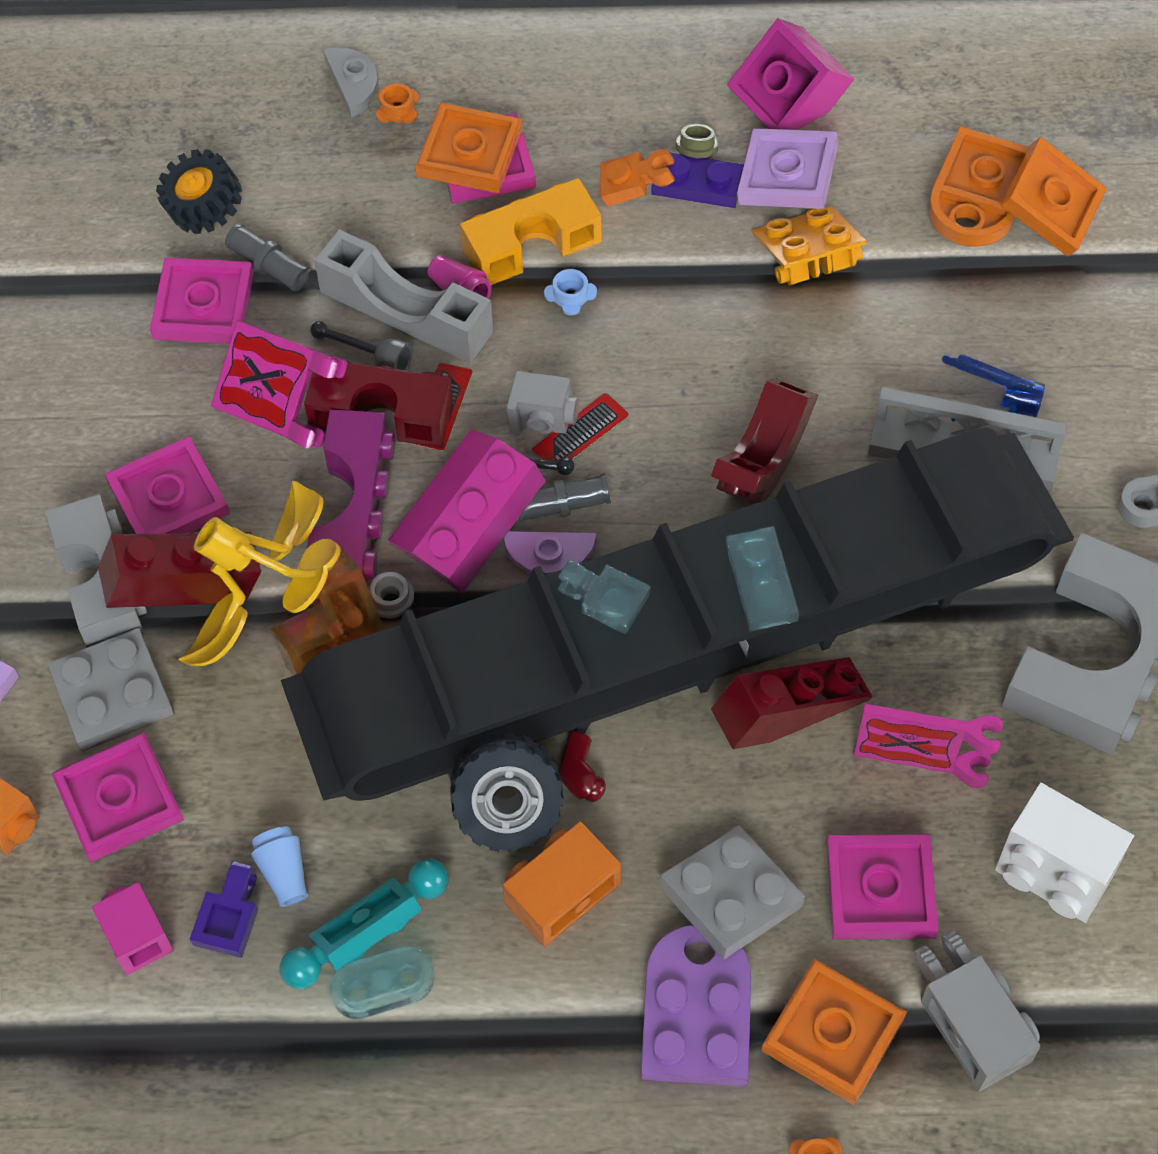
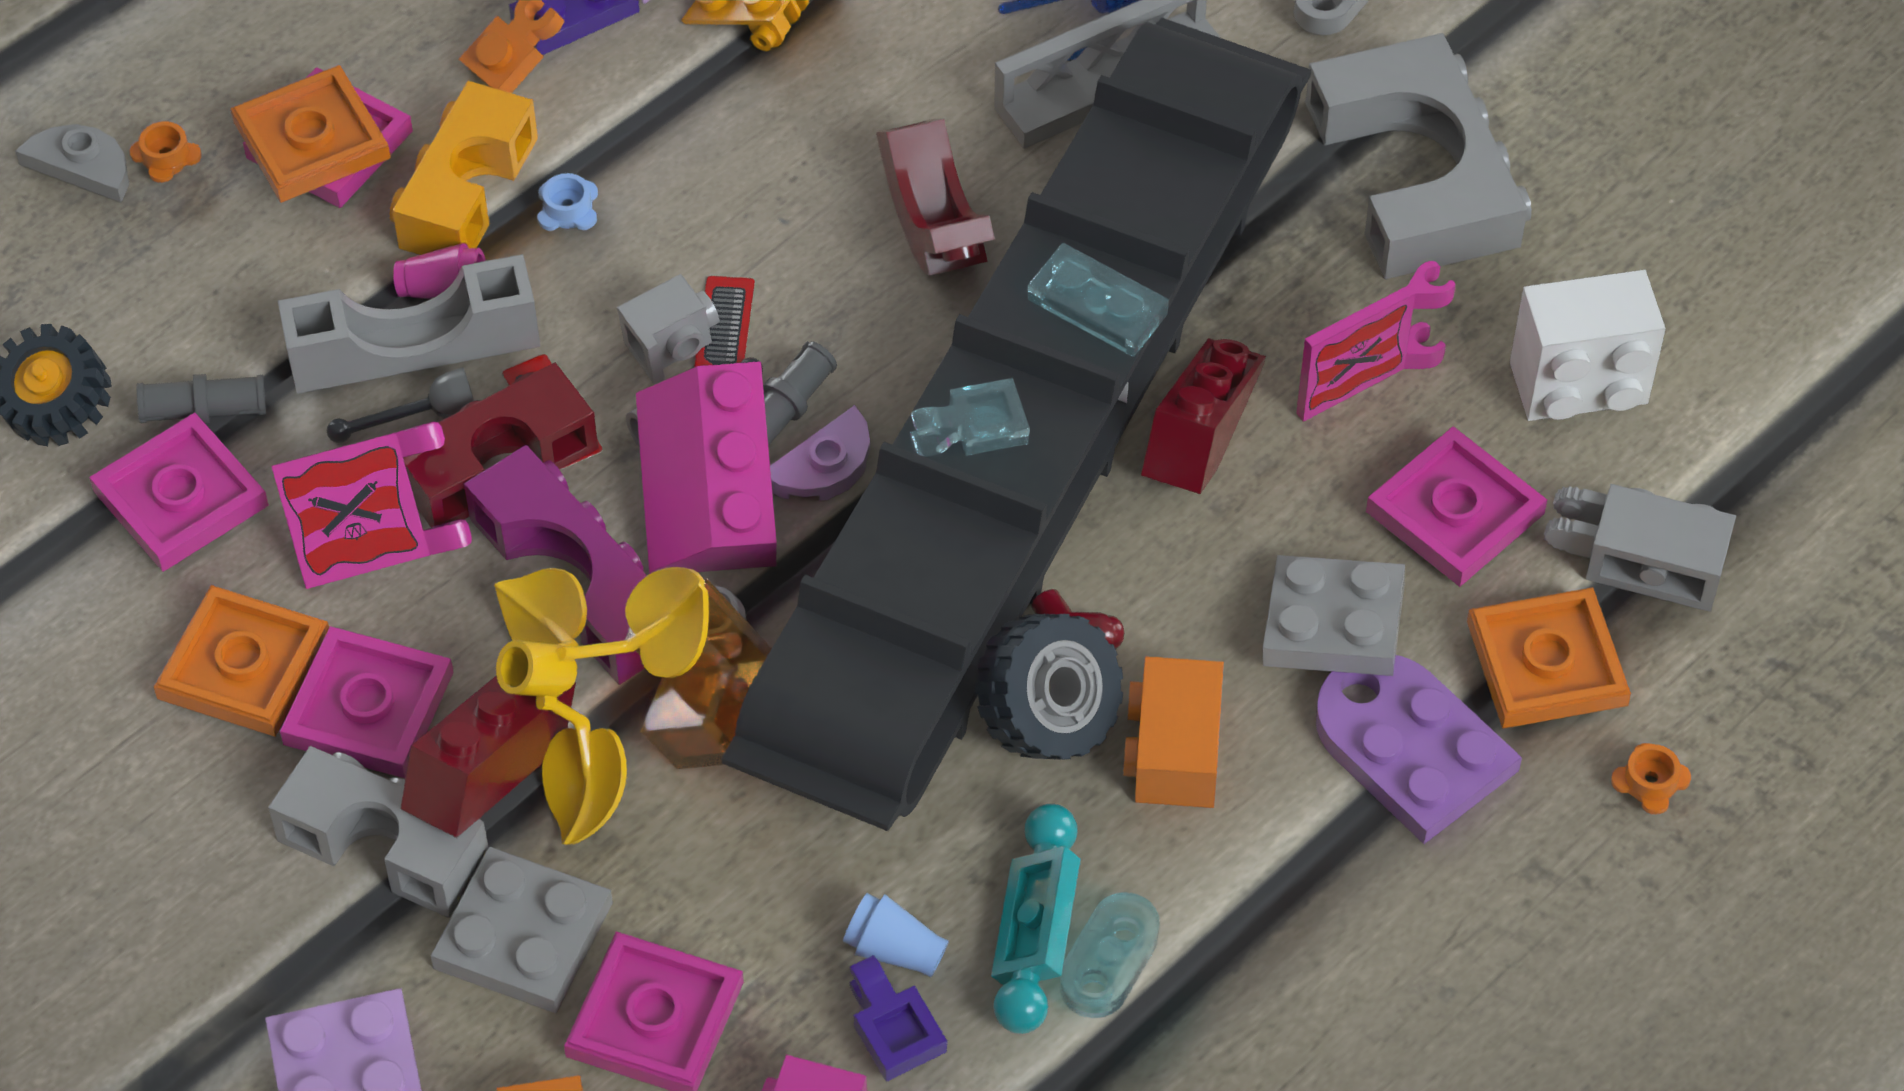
camera: 45 degrees left, 5 degrees down
(133, 417) = (241, 660): none -> orange plate

